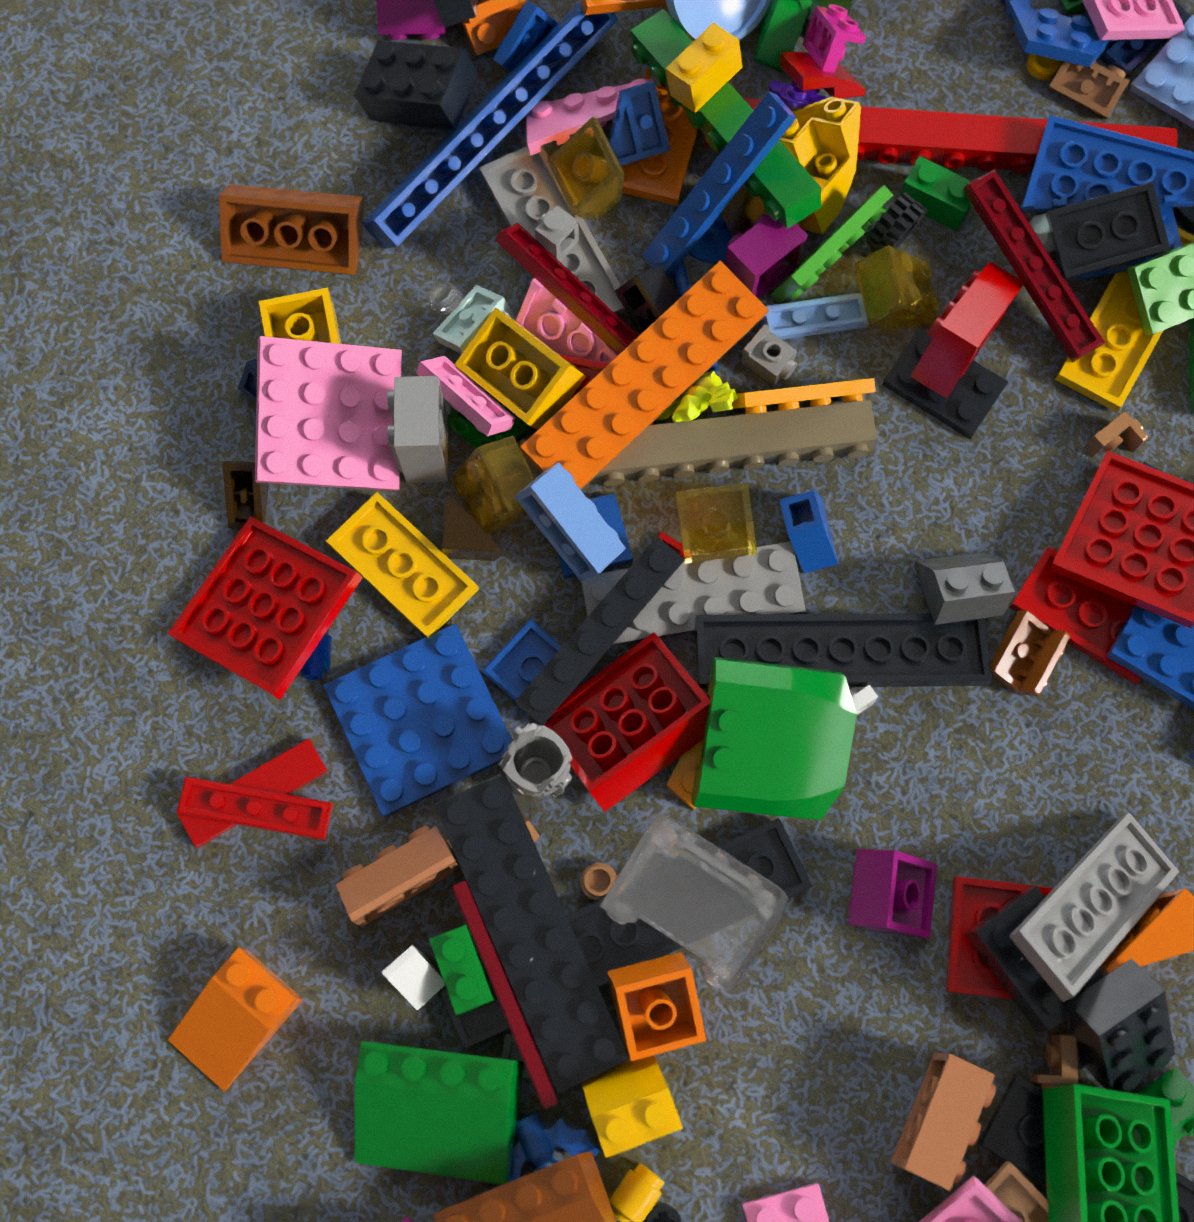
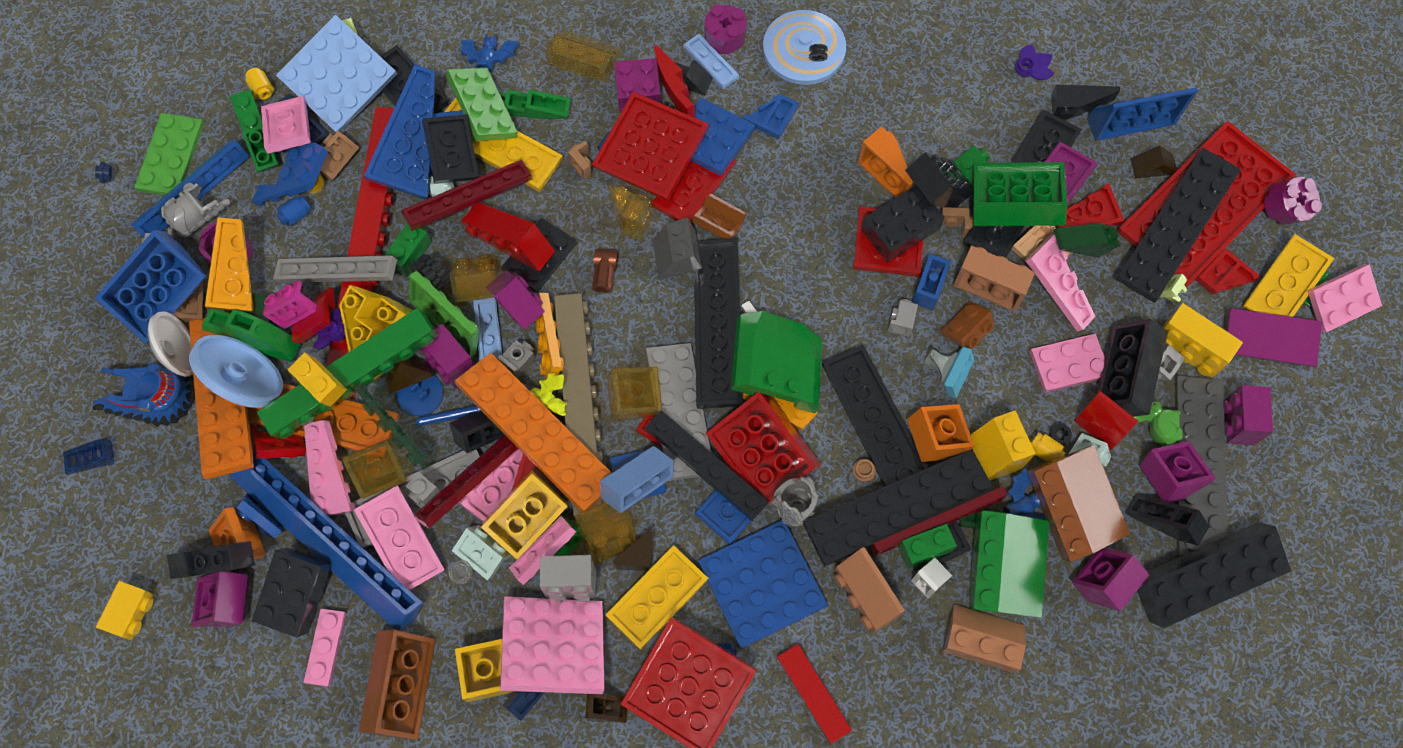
camera: 90 degrees left, 5 degrees down
(234, 1017) = (961, 697): orange slope -> none
(255, 808) = (826, 690): red tile -> none
(320, 1064) = (985, 639): none -> nougat slope
(348, 139) = (325, 647): none -> bright pink plate
(467, 223) = (399, 538): none -> bright pink plate
(618, 46) = (271, 447): none -> red wing
(638, 125) = (342, 433): blue wing -> none
(652, 185) = (387, 423): none -> clear green wing
(697, 899) = (877, 405): clear windscreen -> none
(720, 183) = (403, 376): blue plate -> none
(774, 1039) = (952, 368): none -> medium azure piece
(809, 531) = (640, 337): blue slope -> none
(855, 1074) = (969, 326): none -> dark orange bracket
(857, 339) = (515, 299): none -> magenta brick
(865, 957) = (903, 318): none -> light grey brick
(892, 893) = (865, 302): magenta slope -> none
(893, 95) = (335, 269): none -> light grey plate
(932, 1008) = (931, 282): none -> blue brick
(934, 478) = (604, 265): none -> copper piece
(992, 38) = (293, 210): none -> blue brick
(1022, 509) = (630, 211): none -> clear yellow slope
(1094, 906) = (873, 188): light grey plate -> none

